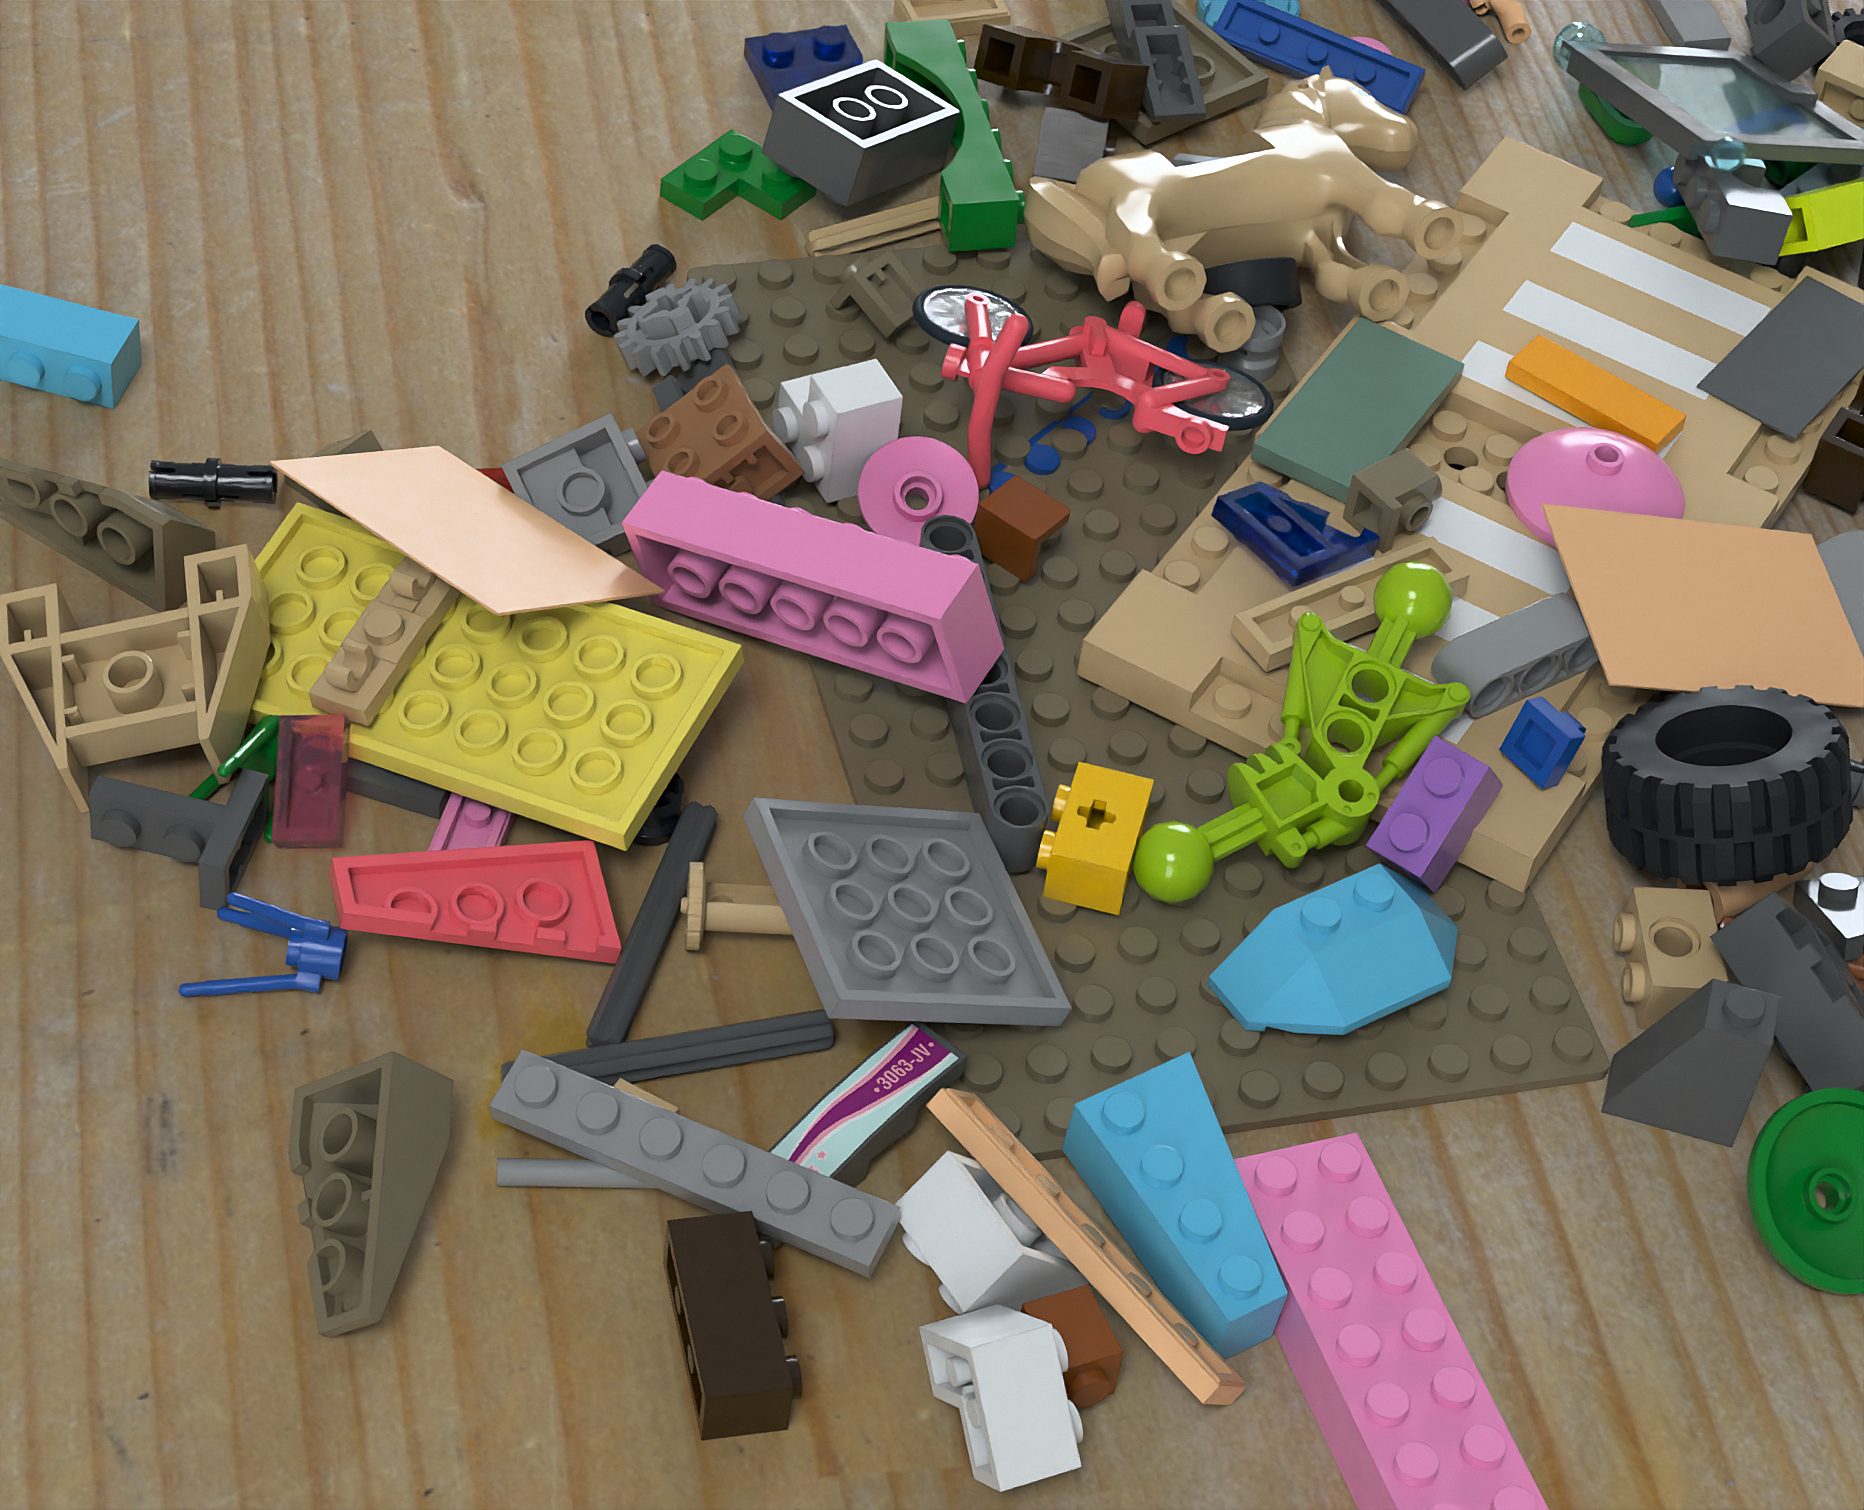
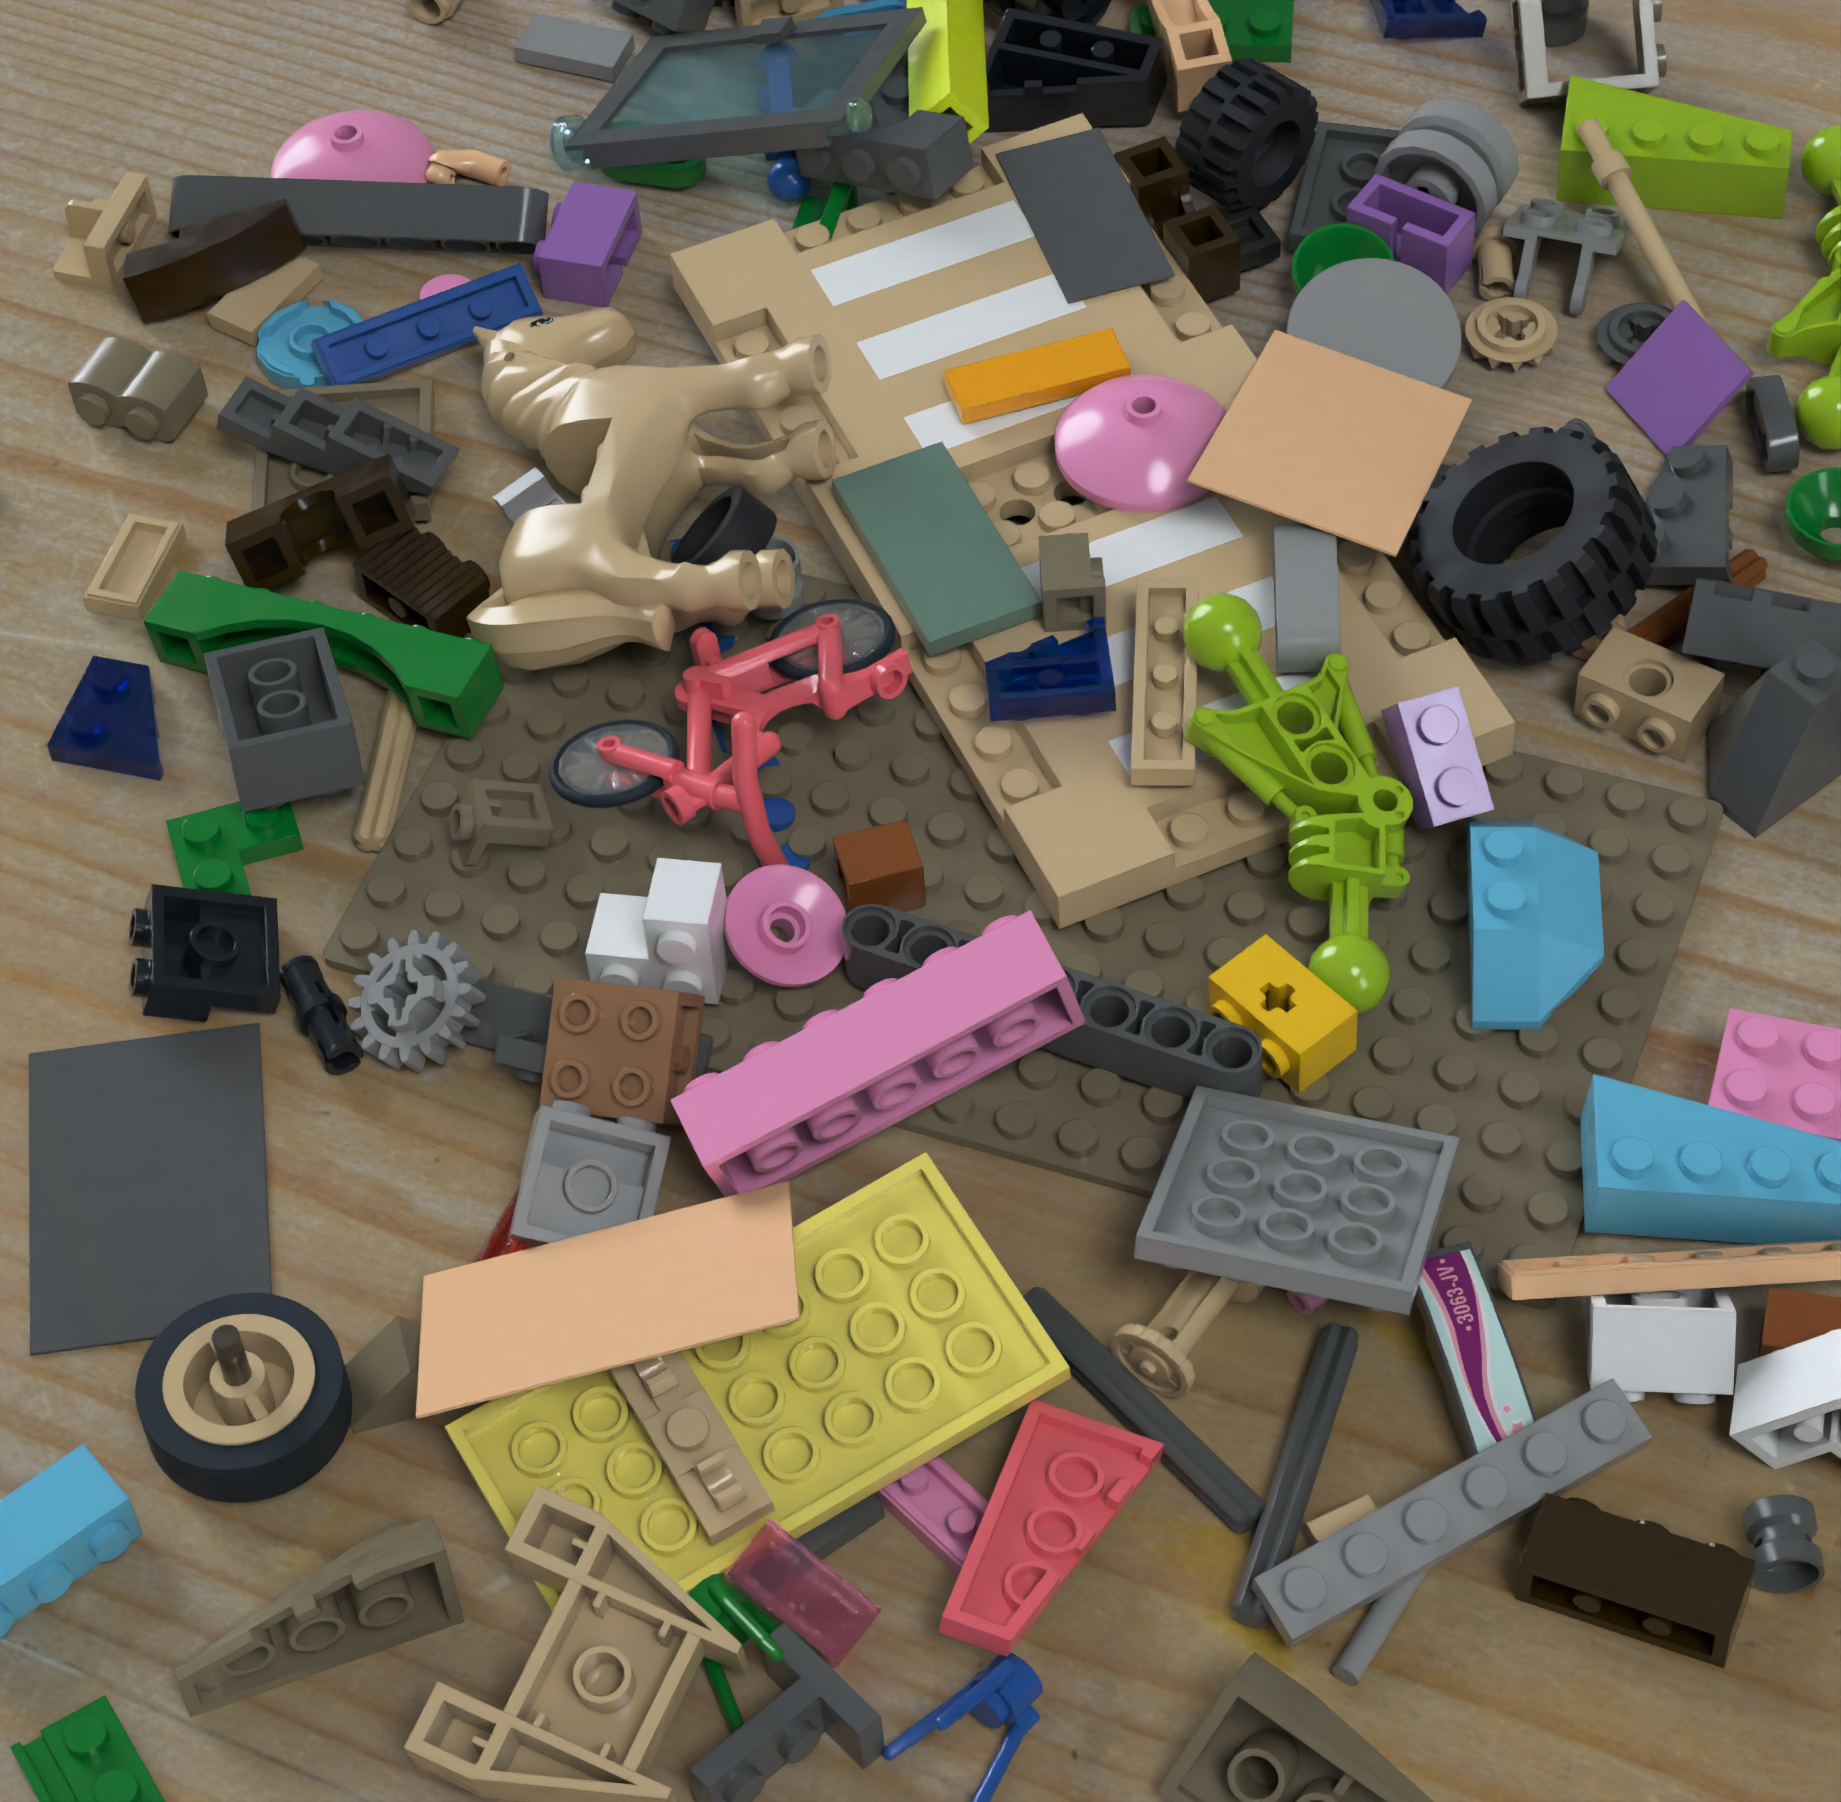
camera: 45 degrees left, 5 degrees up
(213, 482) = (328, 1491): black pin -> none
(251, 390) = (244, 1397): none -> wheel
(410, 276) = (144, 1184): none -> dark grey piece
(627, 198) = (204, 953): none -> black plate
(843, 1417) = (1782, 1538): none -> dark grey wheel
(1508, 94) = (586, 234): none -> medium lavender piece
(1543, 741) = (1416, 638): blue tile -> none

